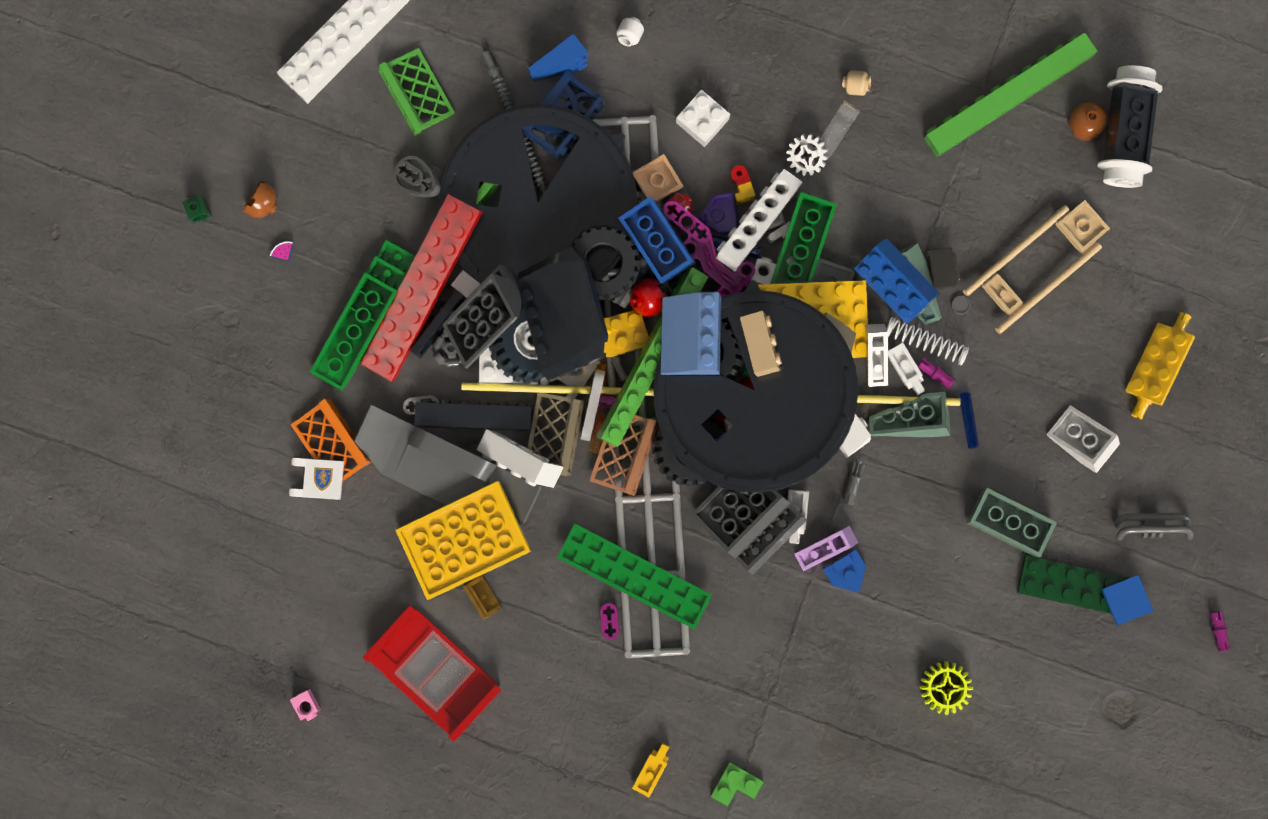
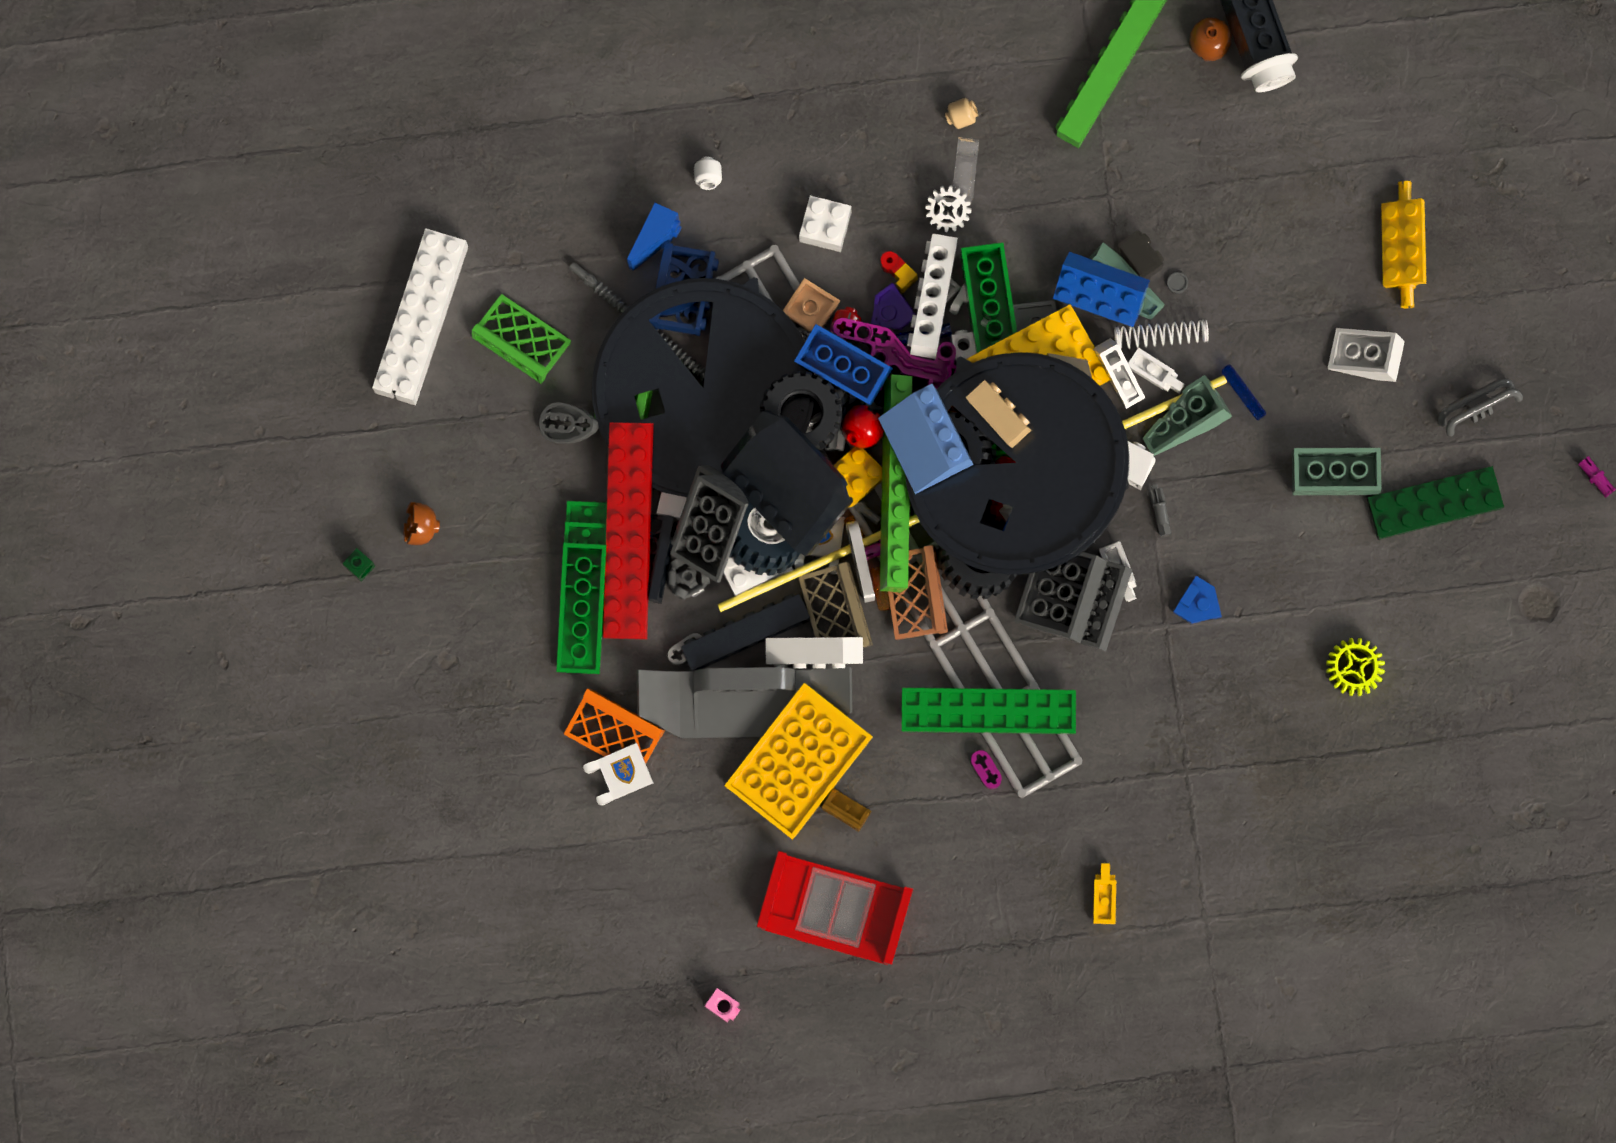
camera: 25 degrees left, 5 degrees down
(282, 250) = (466, 564): dark pink tile -> none
(733, 779) = (1192, 863): bright green plate -> none
(826, 548) = (1166, 588): lavender slope -> none
(936, 372) = (1187, 361): magenta pin -> none
(1079, 226) = (1259, 148): tan plate -> none
(1127, 600) = (1489, 490): blue tile -> none

